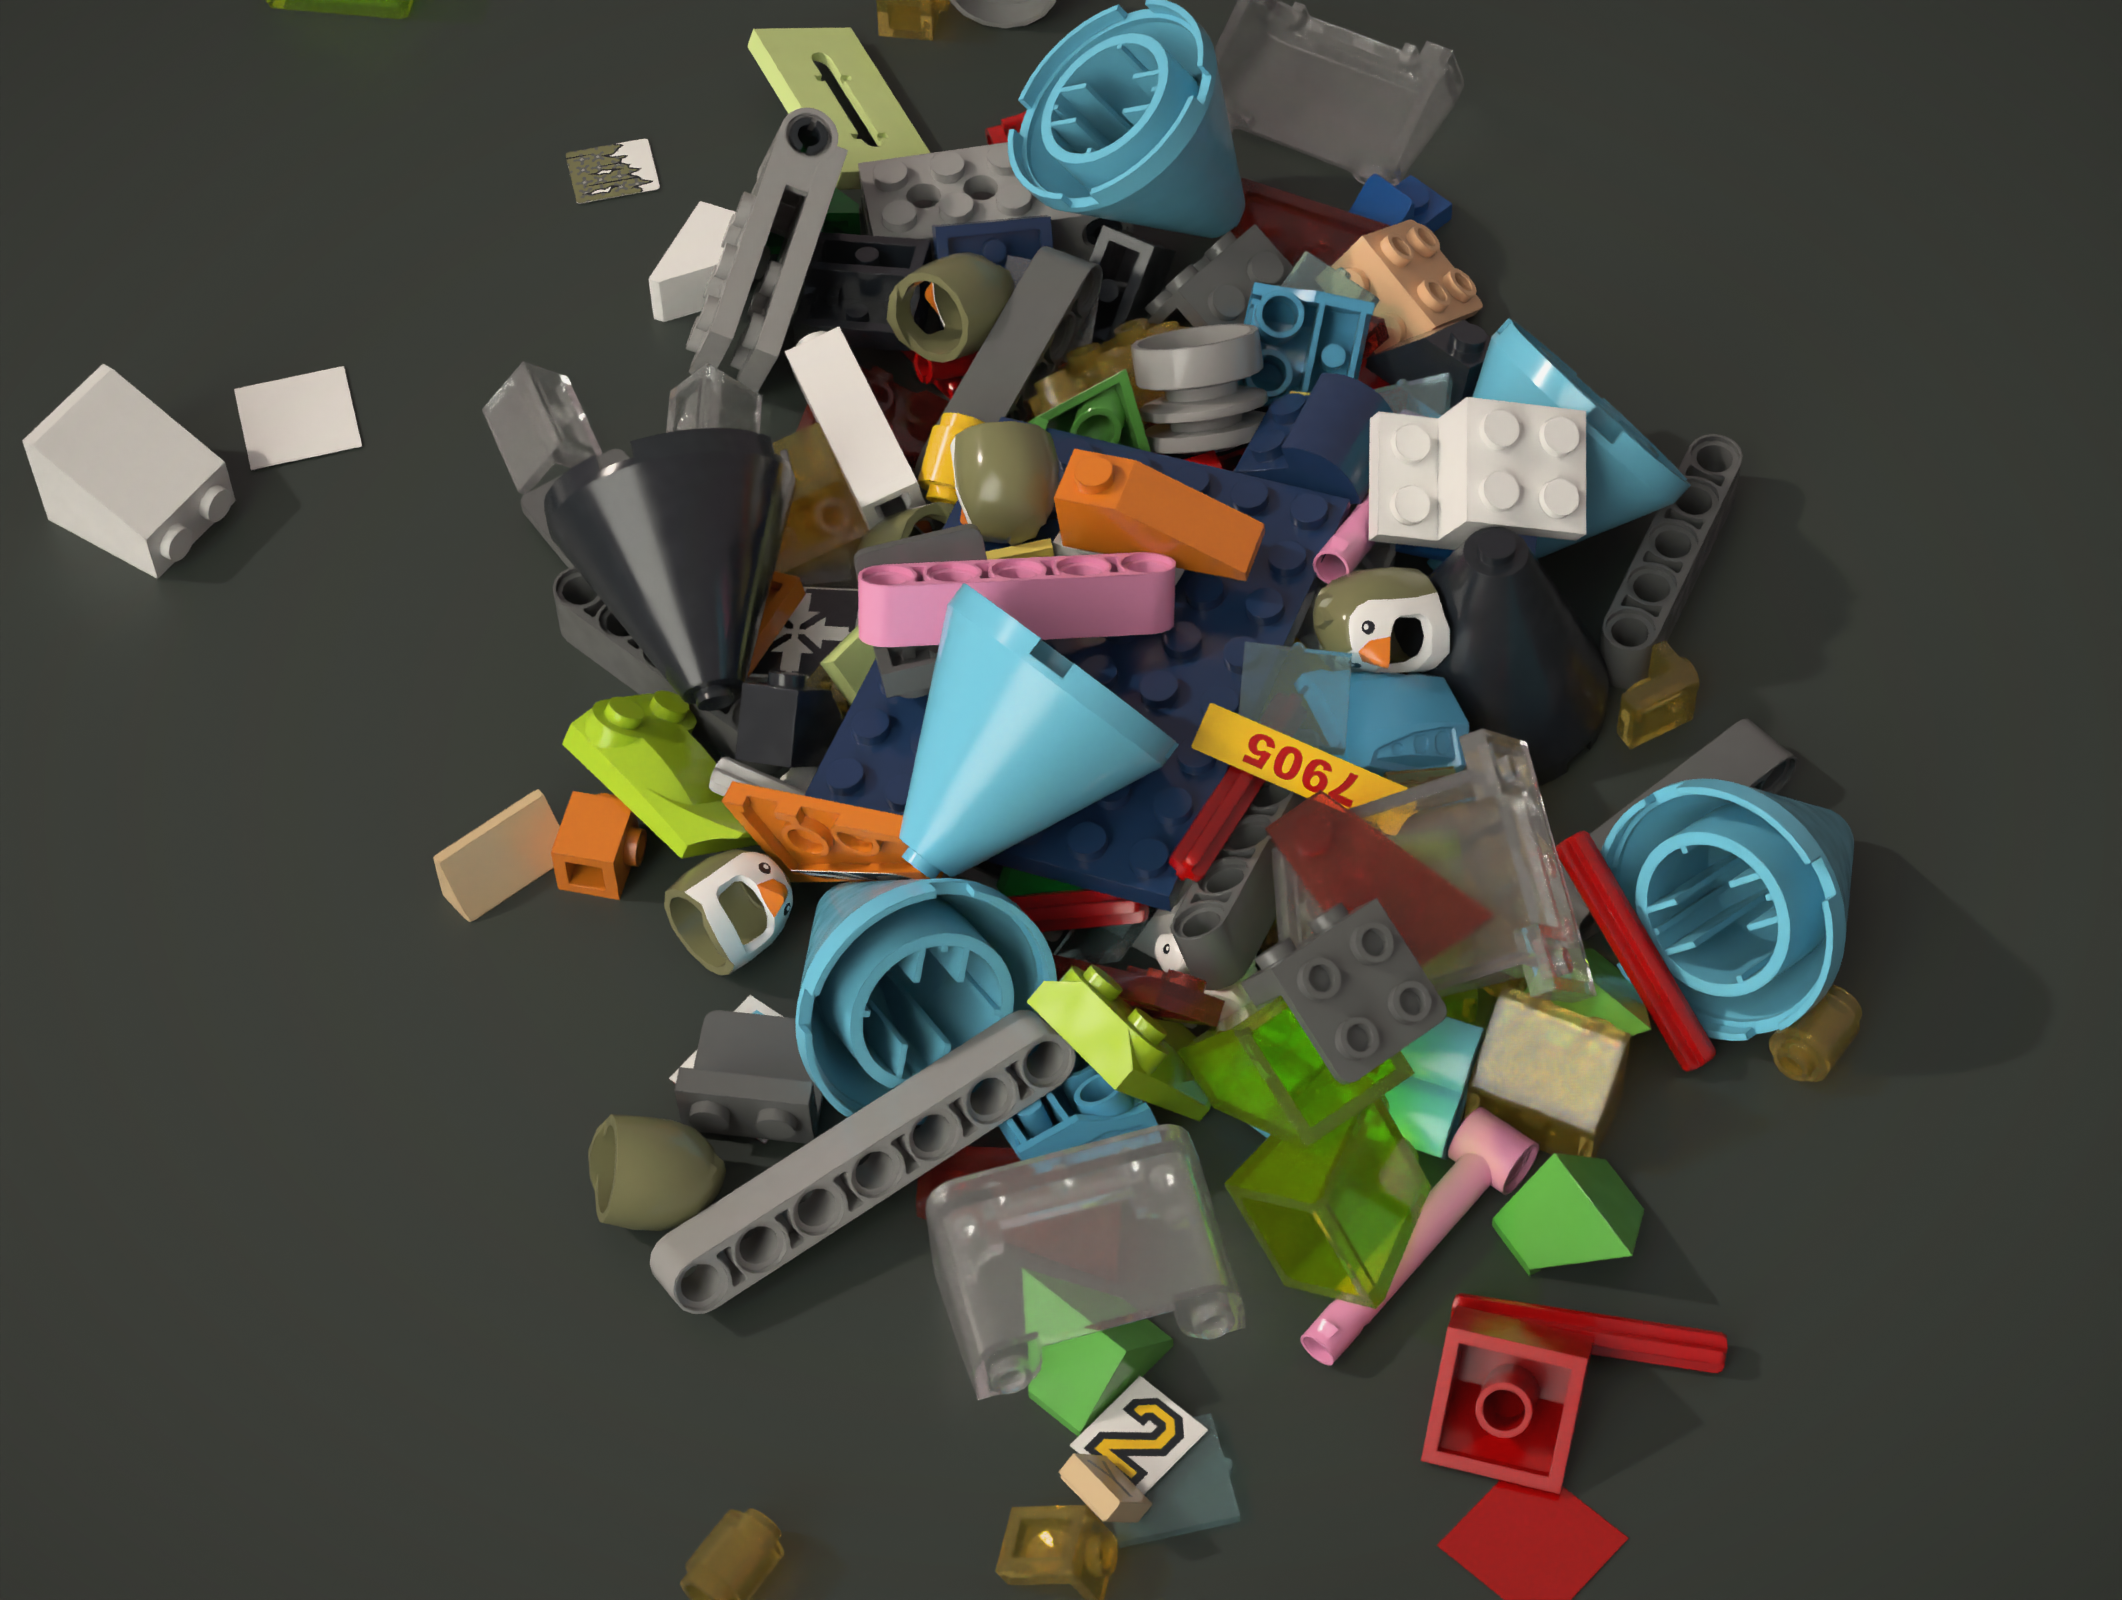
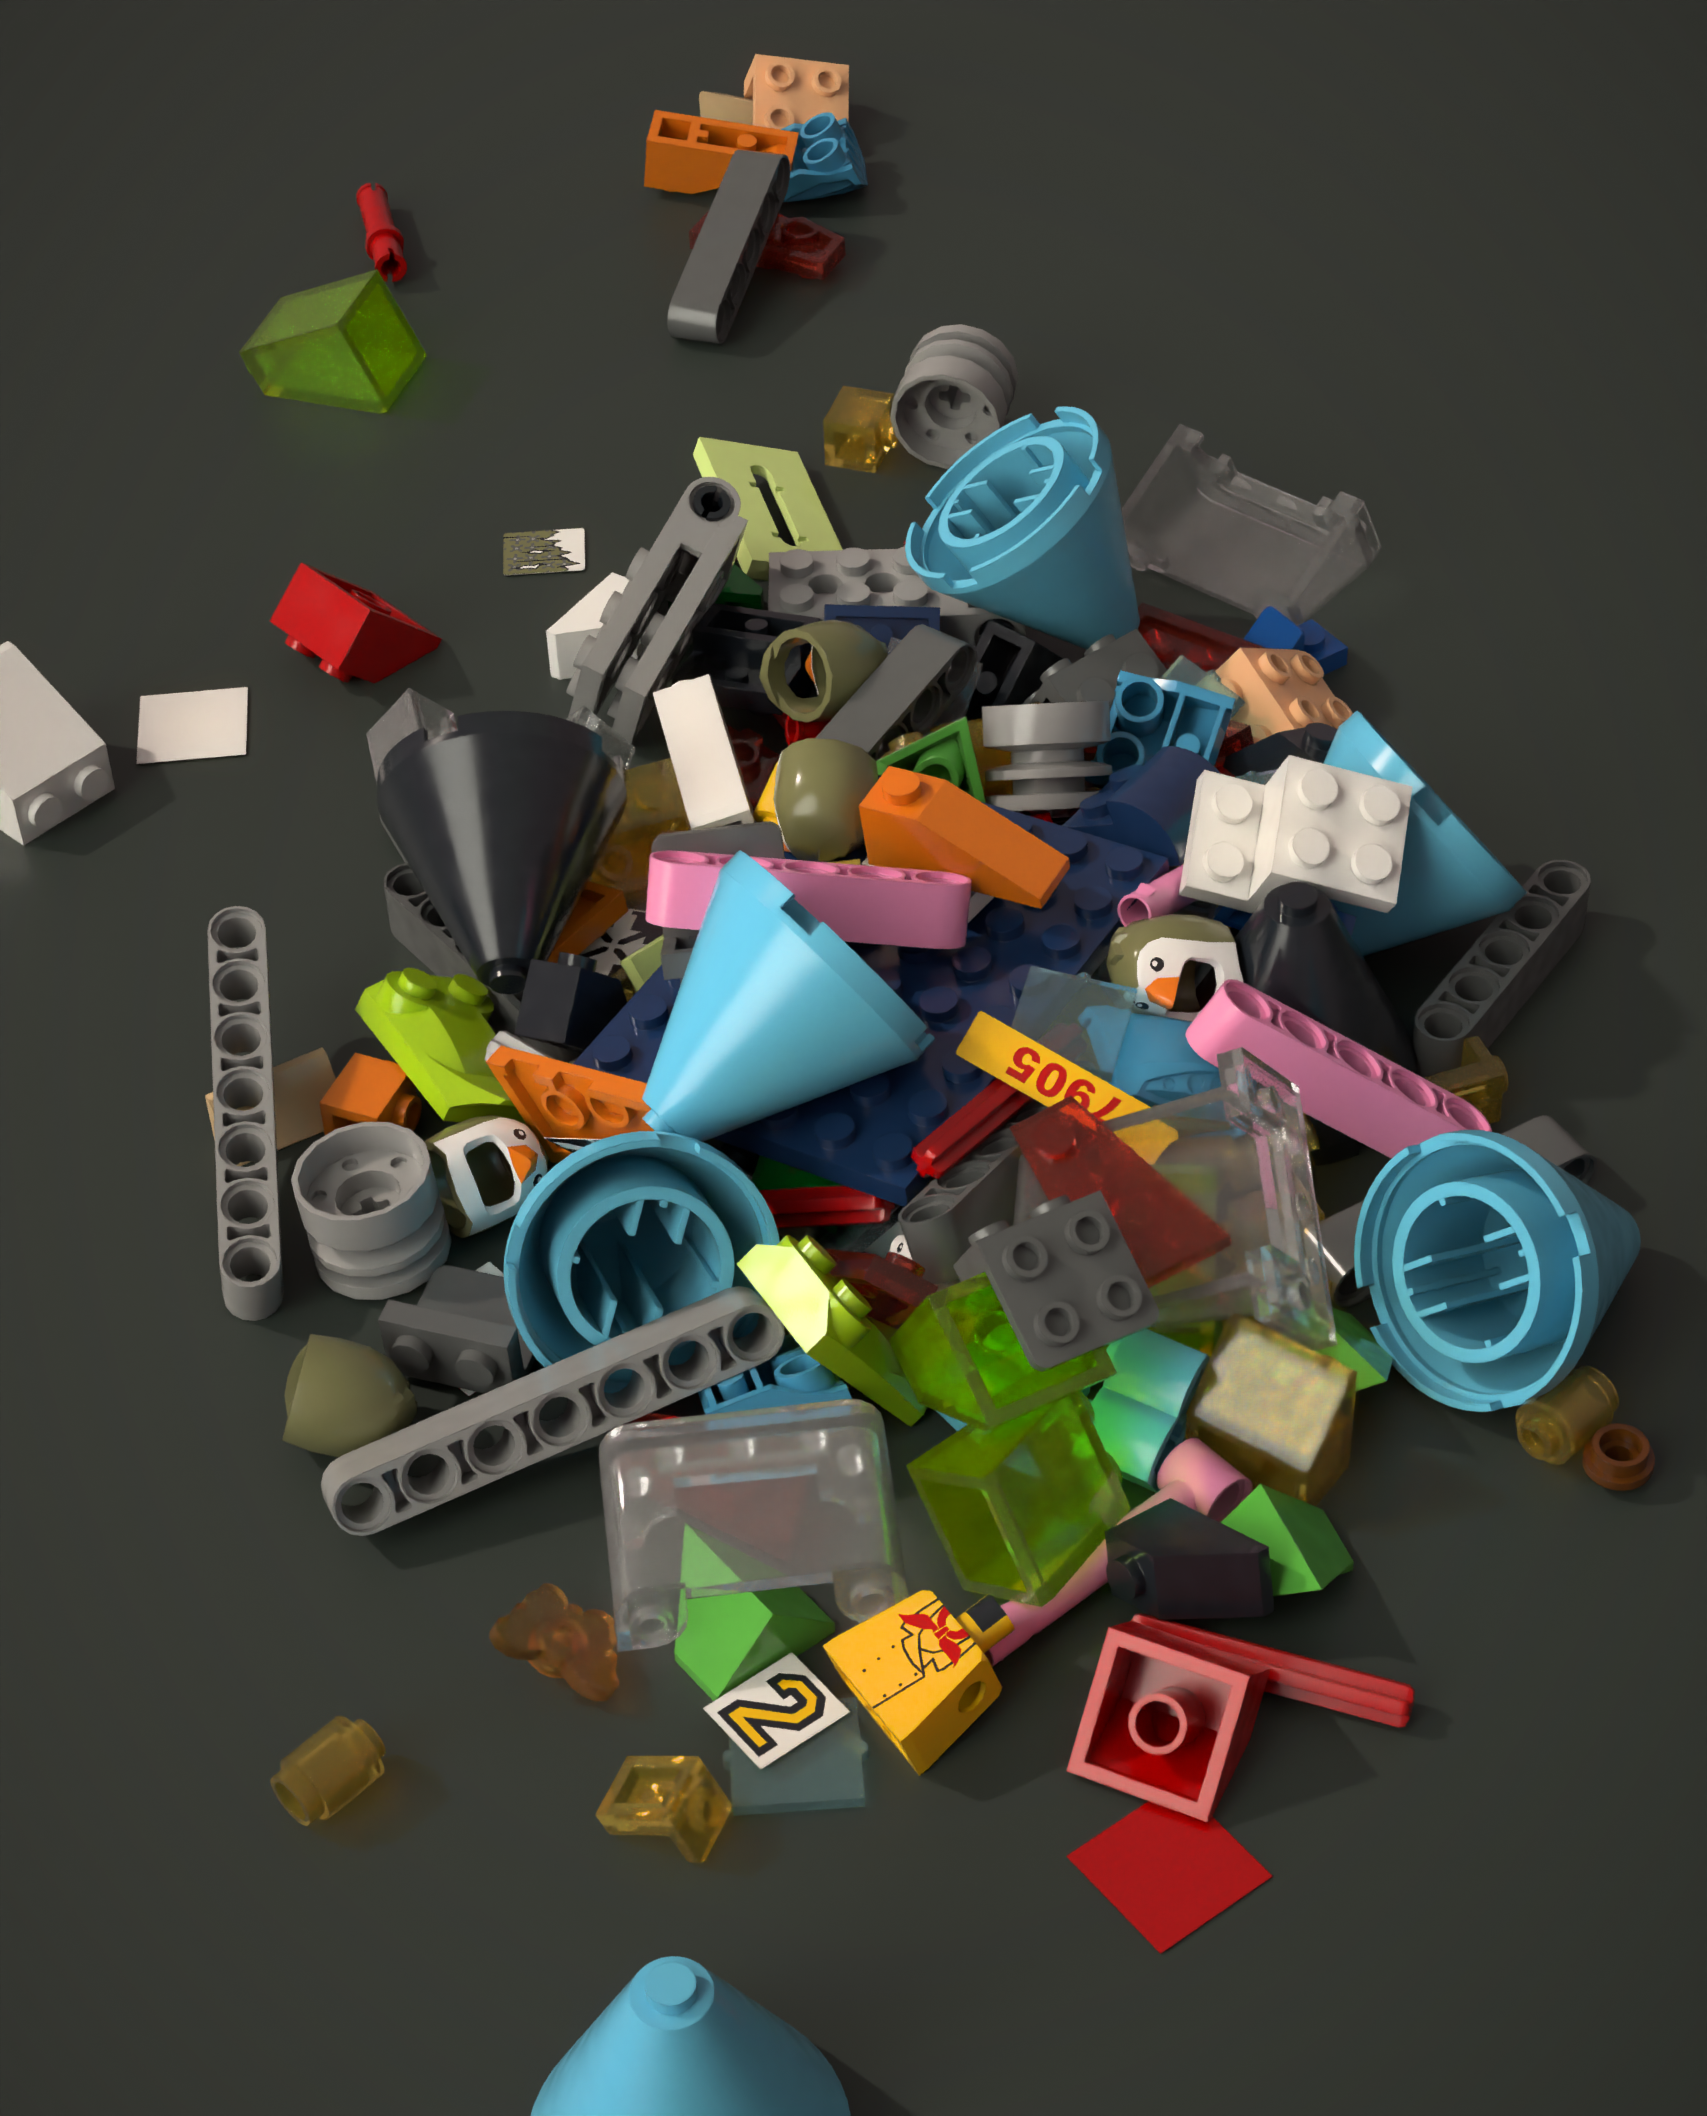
camera: 10 degrees right, 10 degrees down
(438, 289) = (348, 627): none -> red slope
(482, 900) = (248, 1133): none -> light grey beam
(633, 965) = (371, 1210): none -> light grey wheel
(924, 1398) = (561, 1641): none -> clear orange animal
(1104, 1488) = (724, 1747): tan tile -> none
(1273, 1384) = (923, 1671): none -> yellow torso
(1499, 1243) = (1187, 1566): none -> black slope
(1554, 715) = (1335, 1075): none -> bright pink beam
(1635, 951) = (1386, 1309): red axle -> none
(1872, 1056) = (1619, 1457): none -> reddish brown plate

